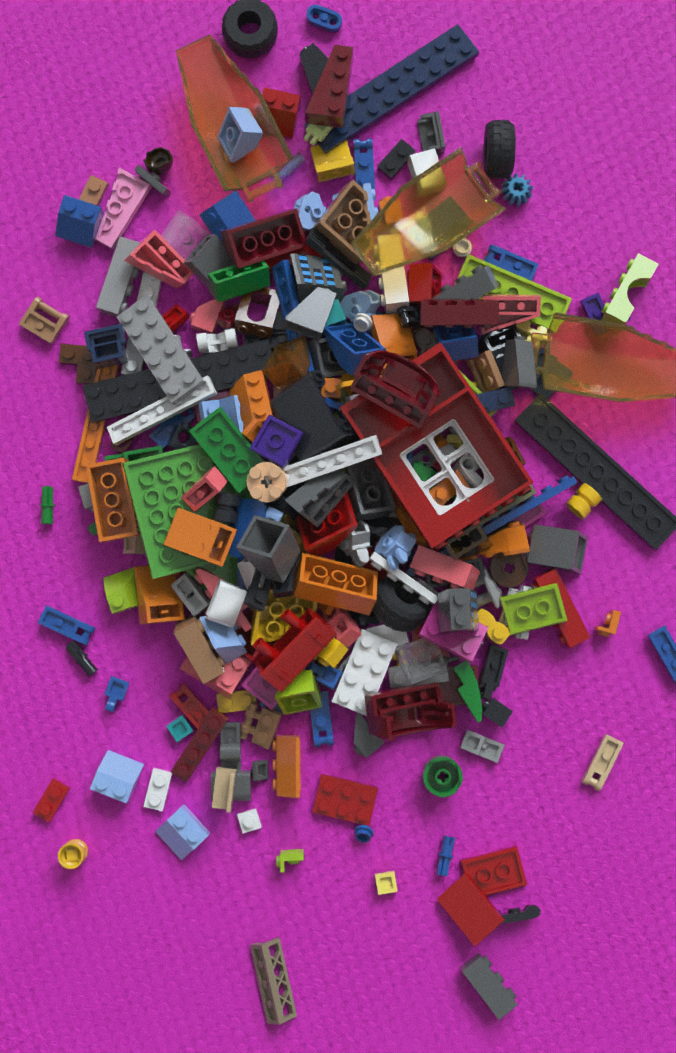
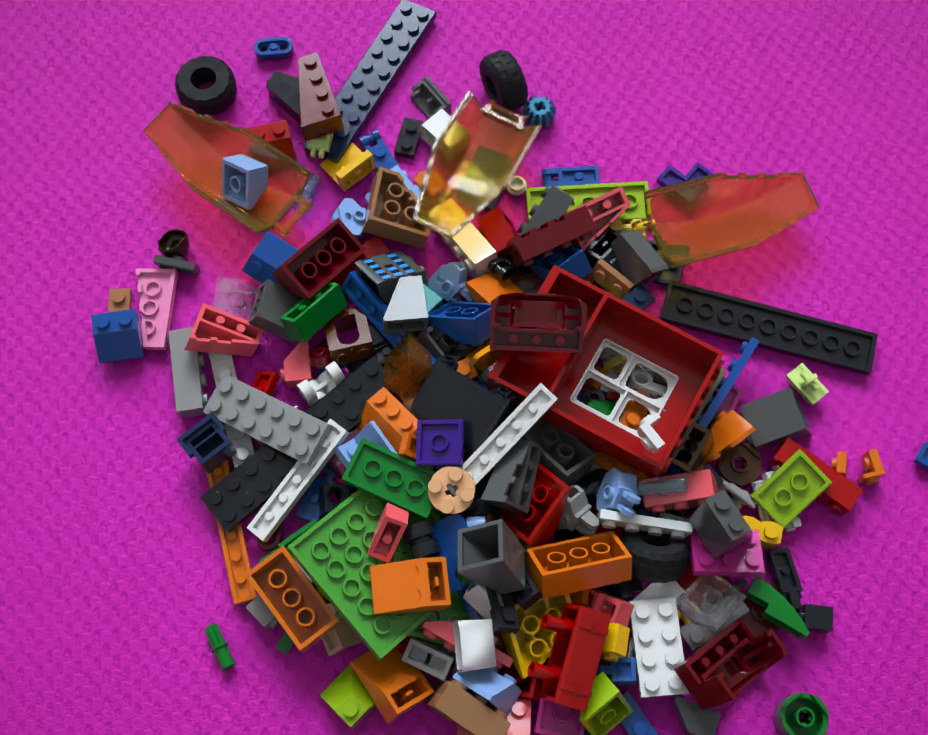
camera: 25 degrees left, 15 degrees down
(41, 326) = (125, 460): medium nougat plate -> none
(81, 357) = (185, 471): reddish brown plate -> none
(320, 243) = (376, 240): black container -> none
(362, 322) = (460, 293): white plate -> none
(429, 559) = (662, 486): none -> clear light blue pin
(434, 522) = (648, 435): none -> white bracket
(482, 746) = (822, 664): light grey slope -> none
(583, 501) = (772, 360): yellow wheel -> none
(586, 609) = (840, 462): none -> orange plate
(599, 533) = (806, 384): none -> yellowish green hips
(638, 276) = (696, 131): arch -> none

